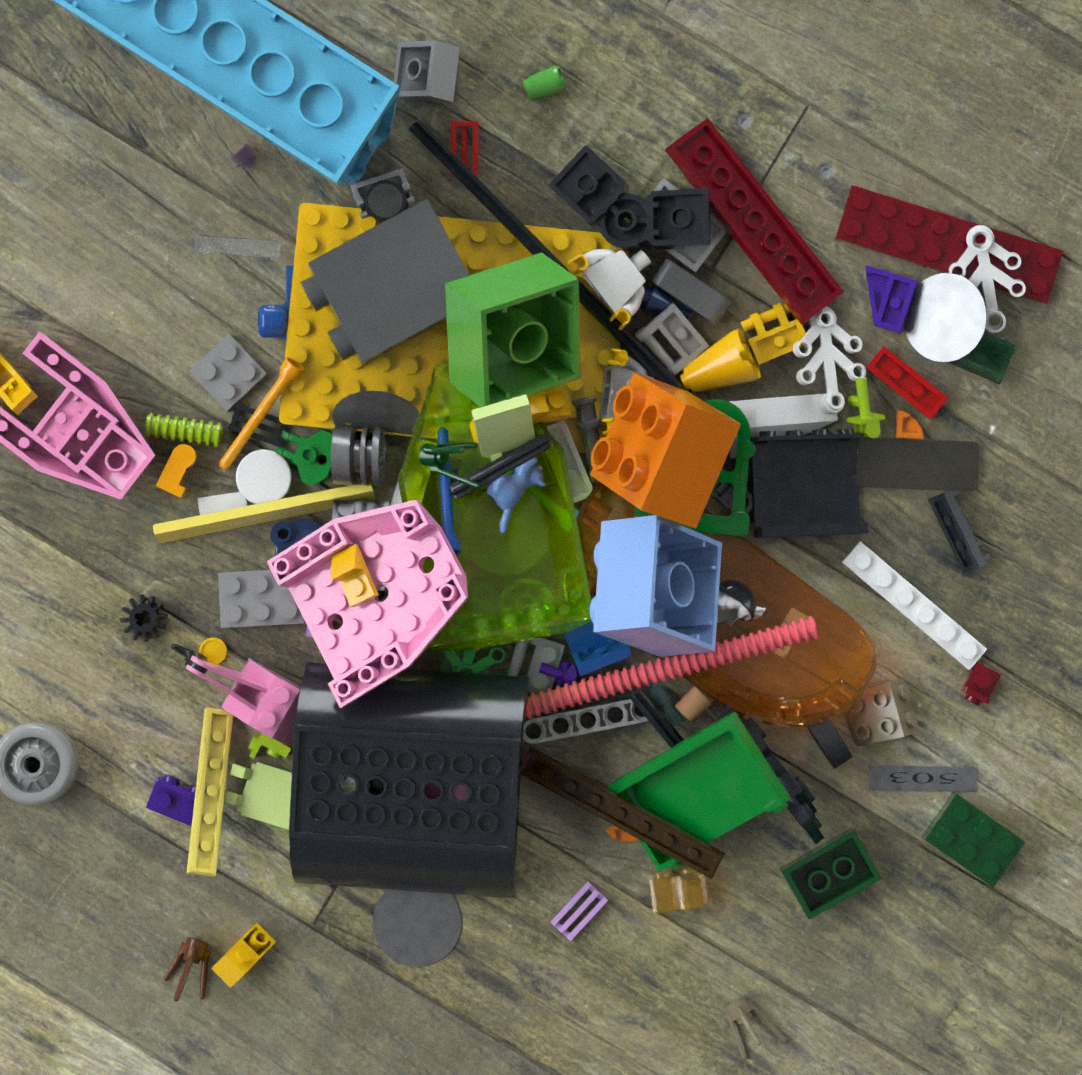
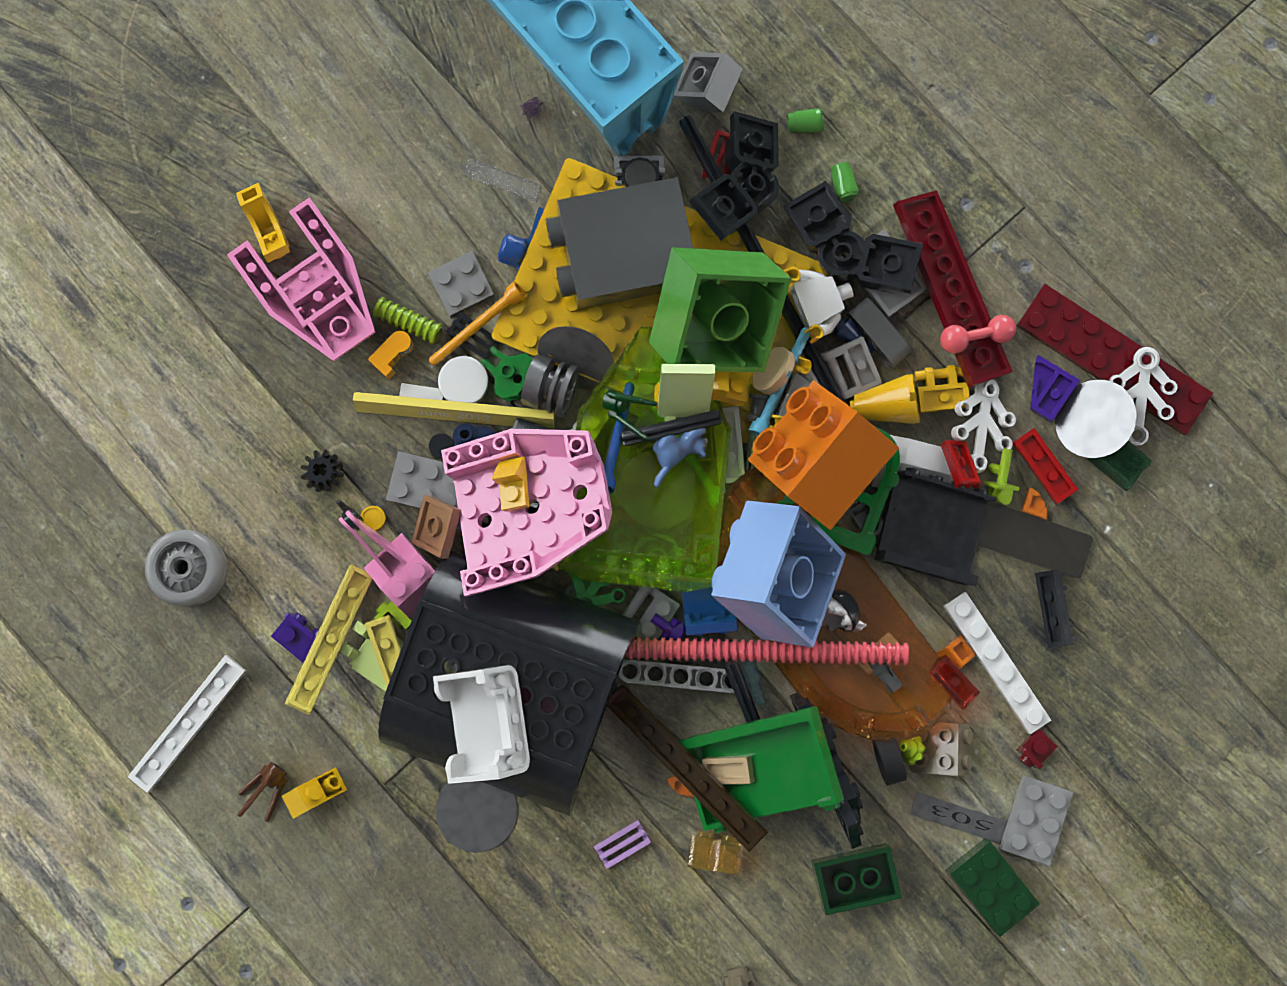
camera: 15 degrees right, 5 degrees down
(88, 923) = (187, 723): none -> white plate
(260, 552) = (438, 443): none -> black tile
(271, 782) = (385, 644): none -> light yellow tile
(284, 641) = (436, 526): none -> medium nougat plate
(402, 830) = (486, 724): none -> white windscreen
(497, 144) = (750, 187): none -> black plate
(593, 361) = (777, 368): none -> tan tile
(594, 431) = (763, 422): none -> medium azure piece
(606, 139) = (844, 182): none -> bright green piece
(668, 800) = (731, 769): none -> tan tile
(693, 704) = (778, 690): medium nougat piece -> none
(773, 278) = (956, 339): none -> coral piece
(803, 656) = (887, 676): none -> dark grey pin
(811, 409) = (958, 464): none -> red tile
(849, 724) = (912, 750): none -> lime plant
(869, 609) = (958, 652): none -> orange slope
(873, 640) = (953, 681): none -> clear red slope
(1000, 757) = (1036, 820): none -> light grey plate

